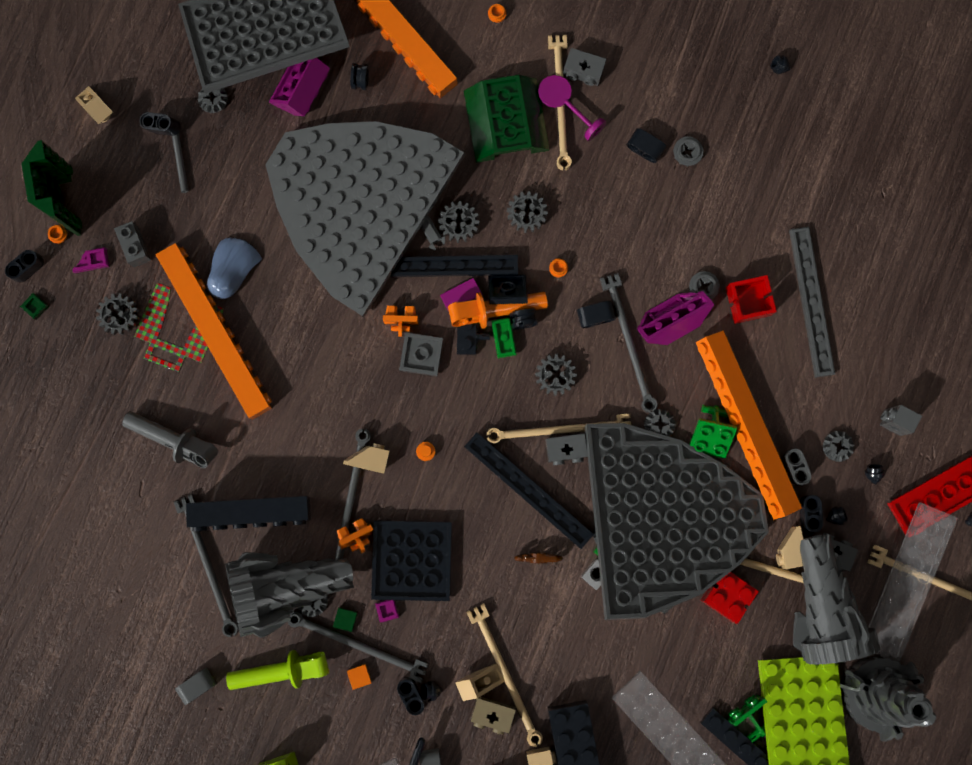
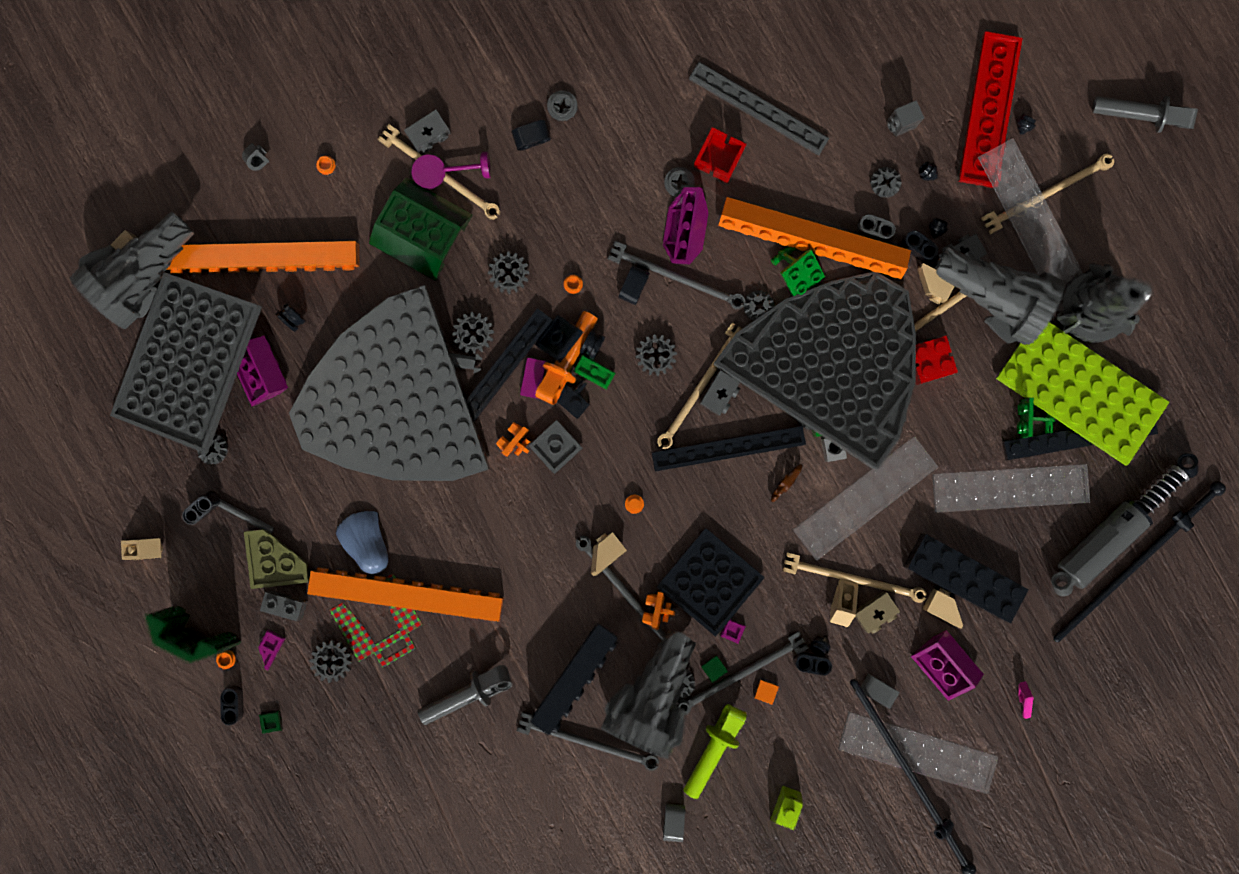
camera: 50 degrees left, 5 degrees up
(161, 209) = (272, 561): none -> olive plate
(577, 631) = (865, 498): none -> clear plate

